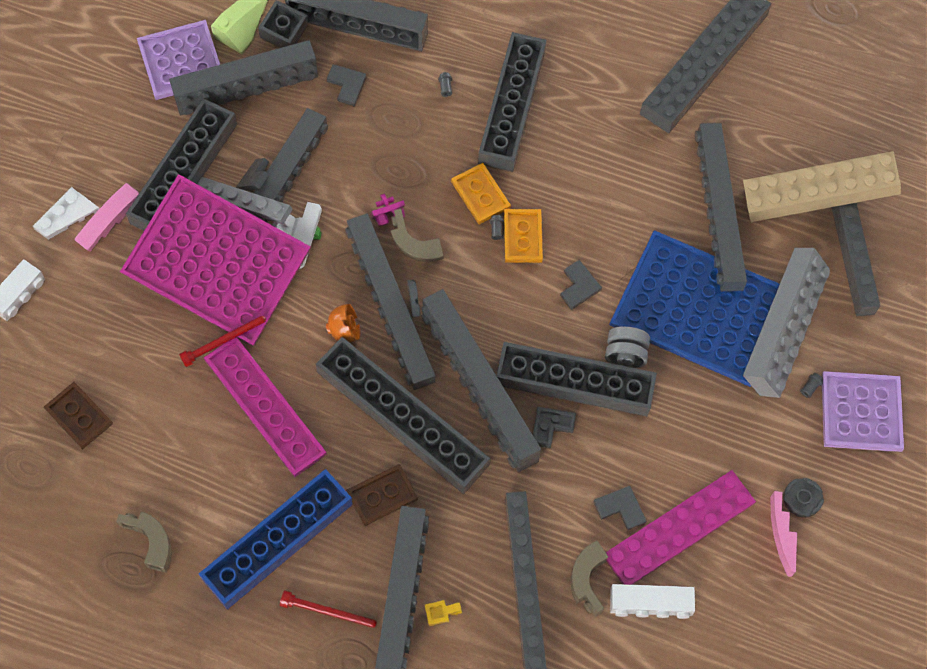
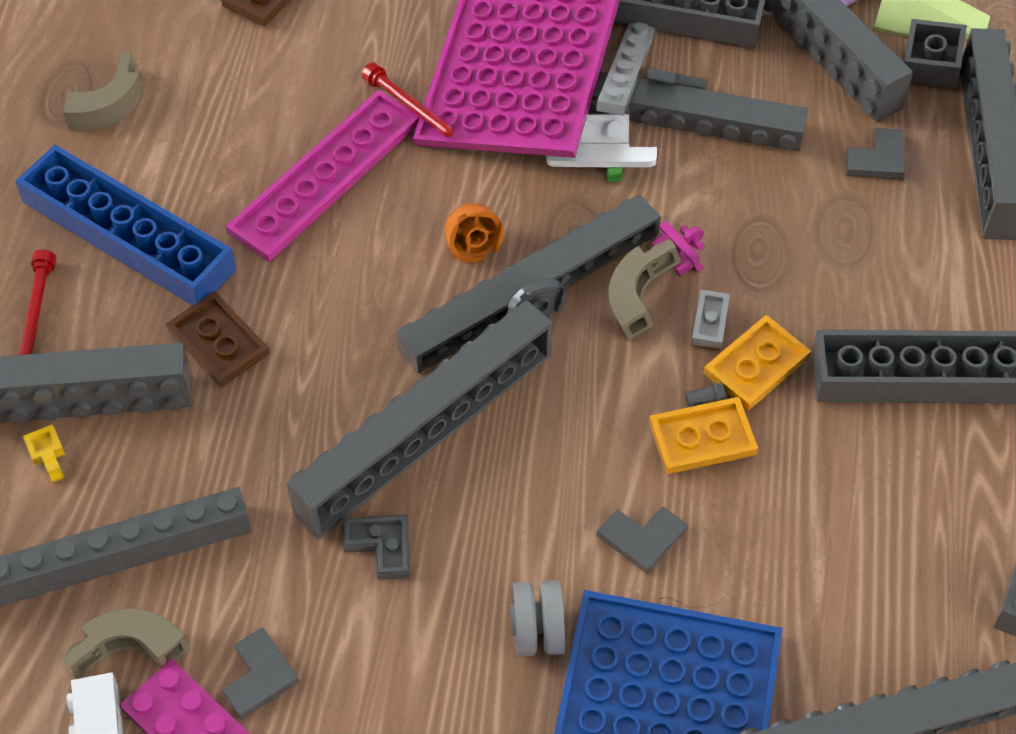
camera: 80 degrees right, 10 degrees down
(403, 415) = (340, 336): dark grey brick -> none
(444, 209) = (710, 319): none -> light grey plate
(445, 83) = (938, 275): dark grey pin -> none
(576, 379) = (463, 559): dark grey brick -> none

